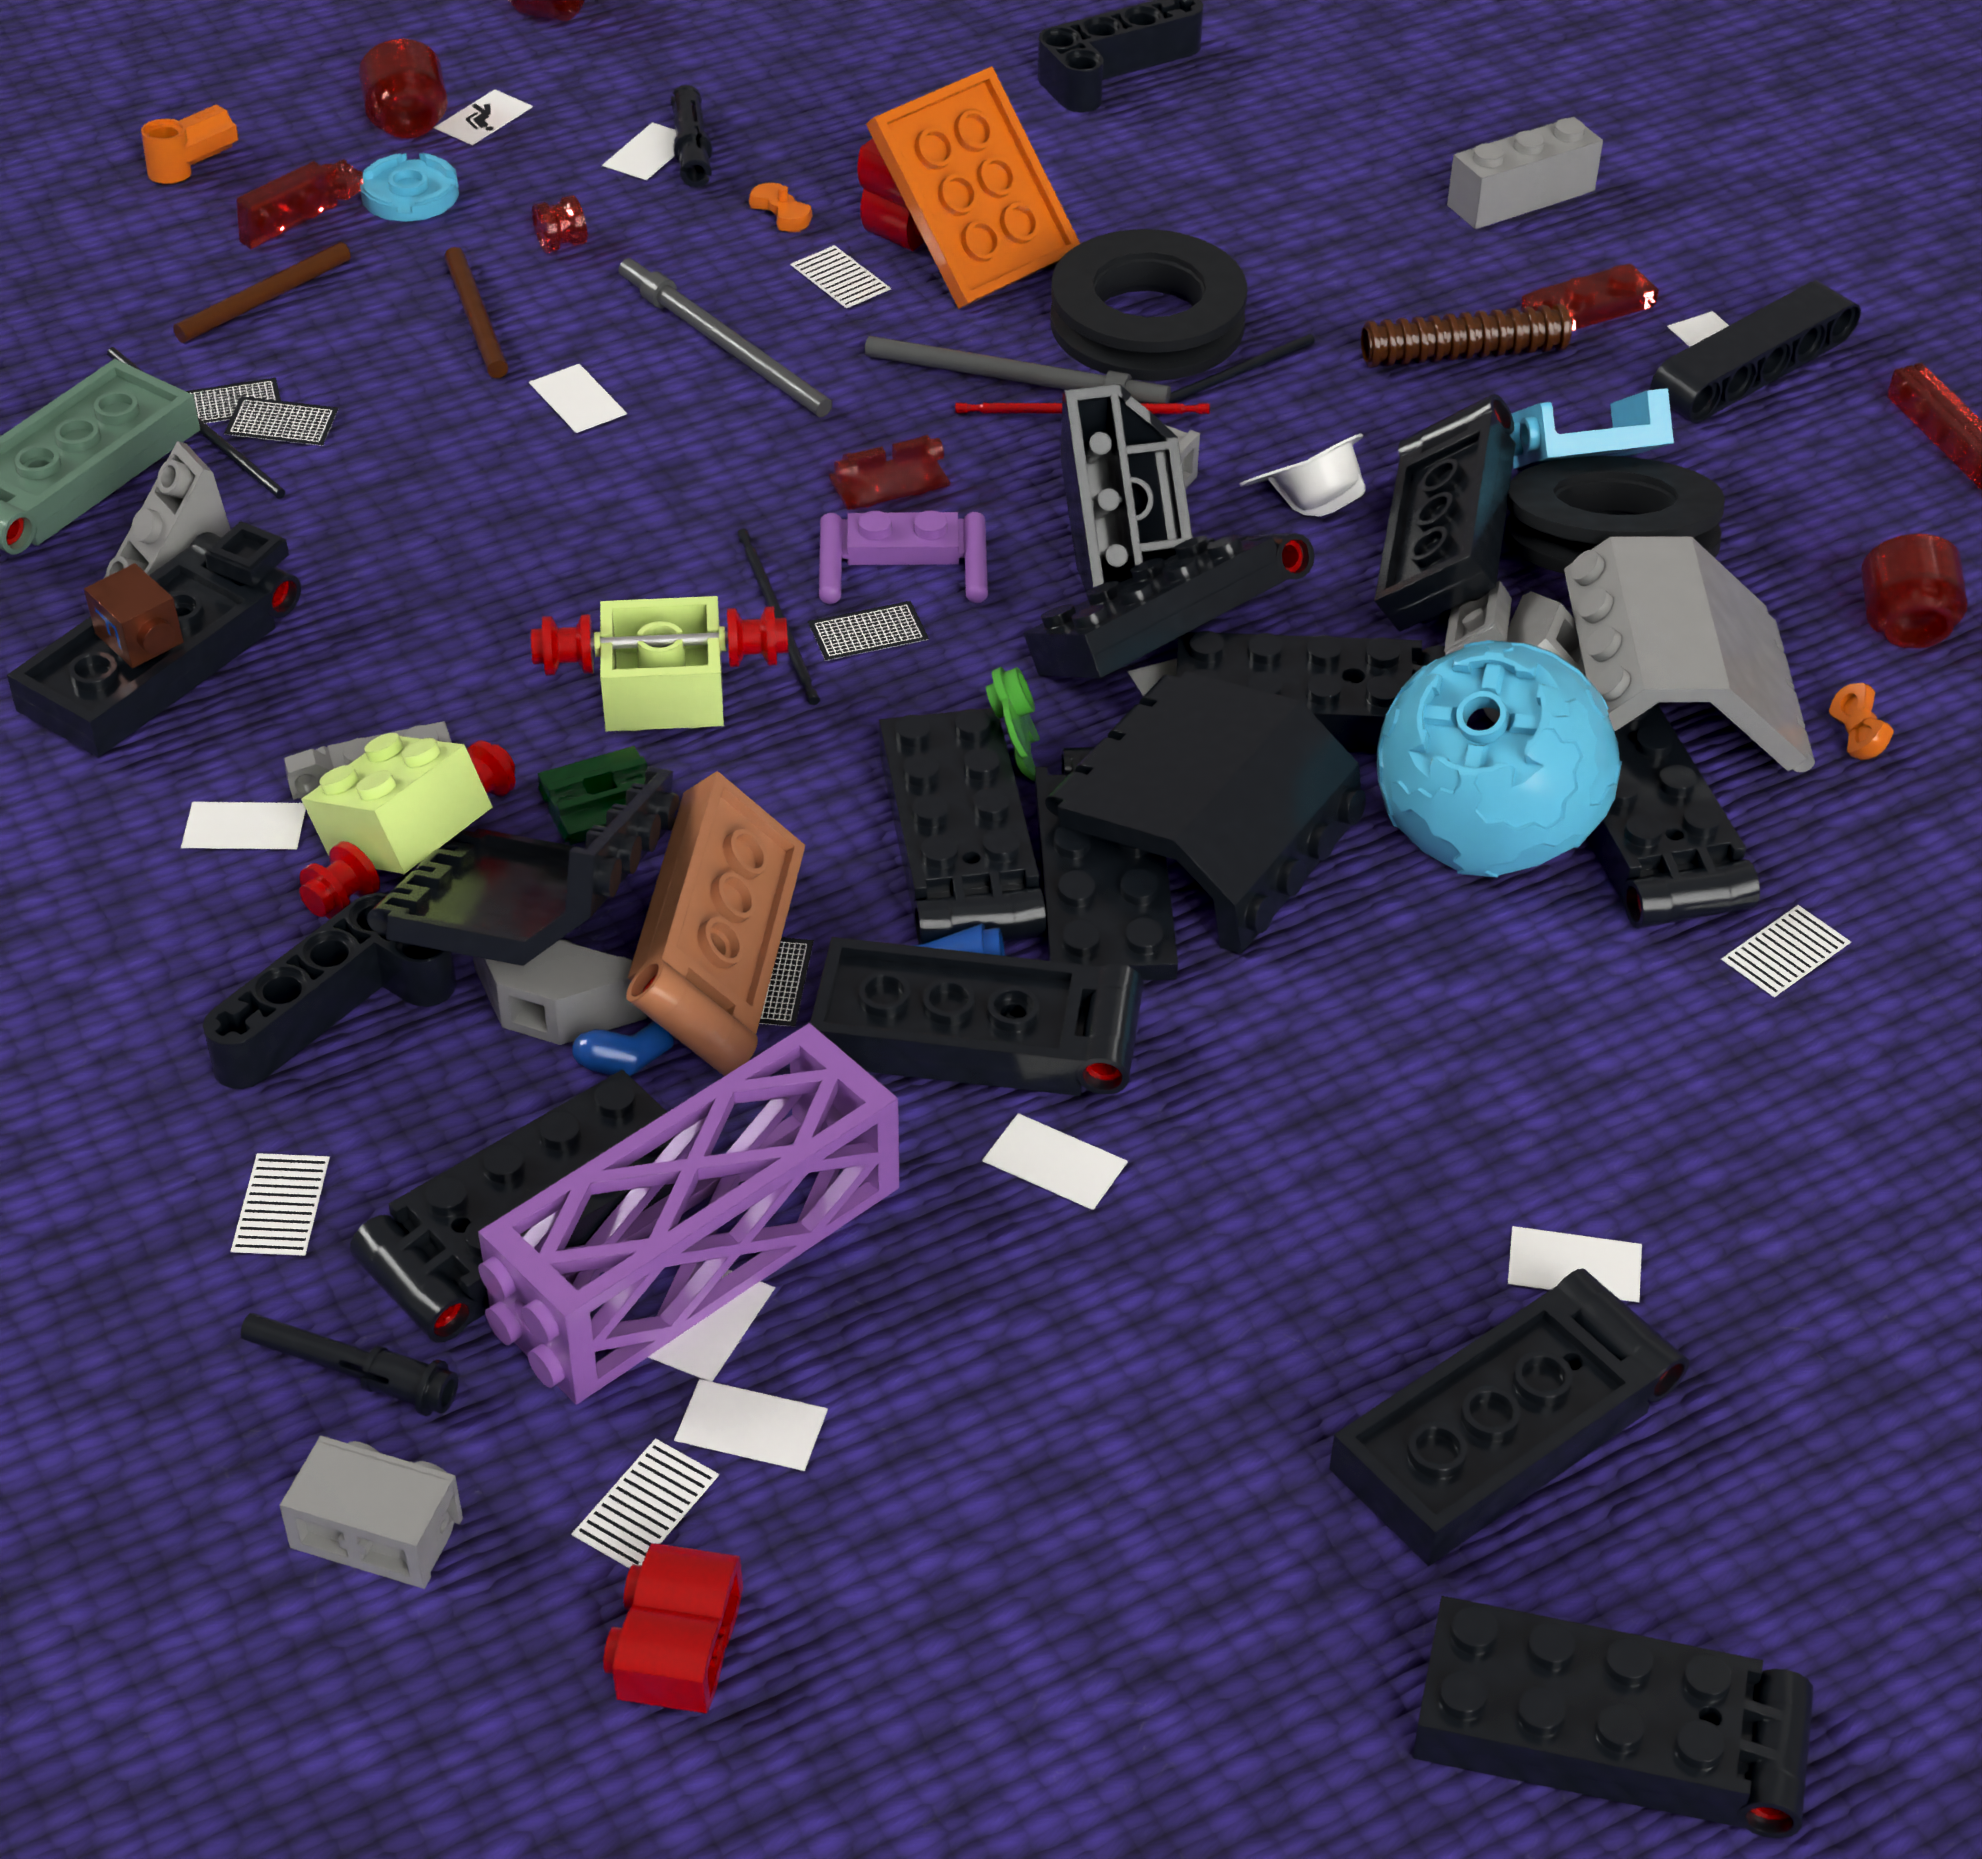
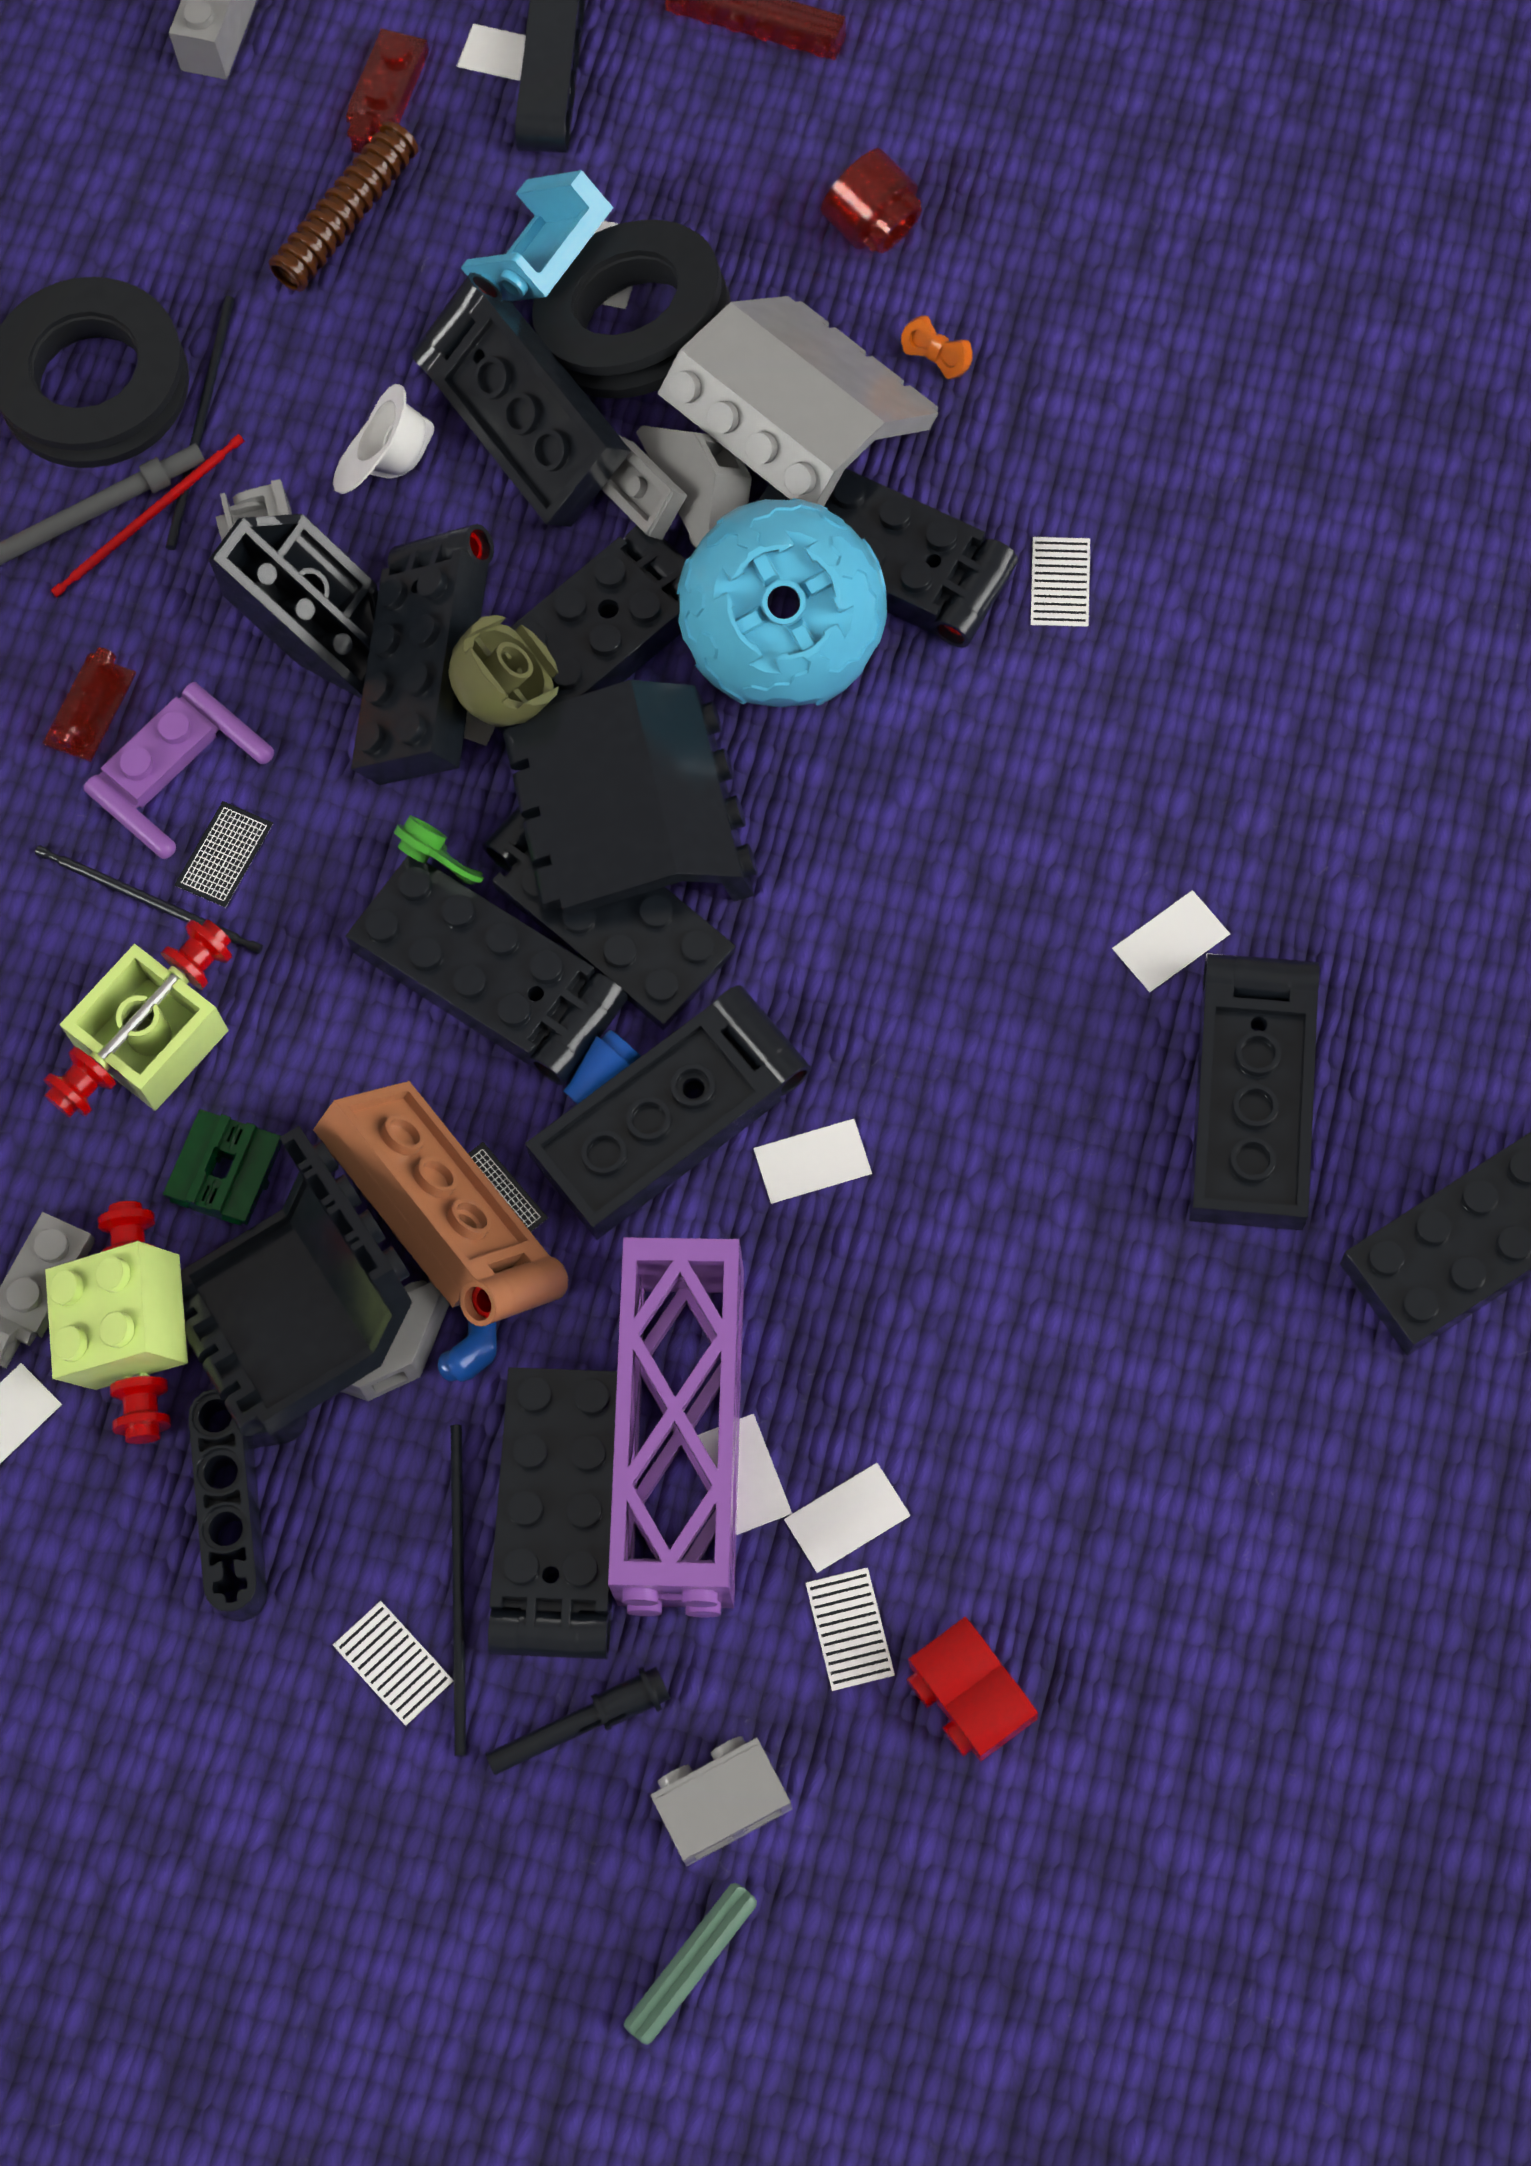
camera: 40 degrees left, 25 degrees up
(192, 1609) = (690, 1963): none -> sand green axle
(382, 1204) = (458, 1591): none -> black axle
(1202, 623) = (502, 672): none -> olive cylinder

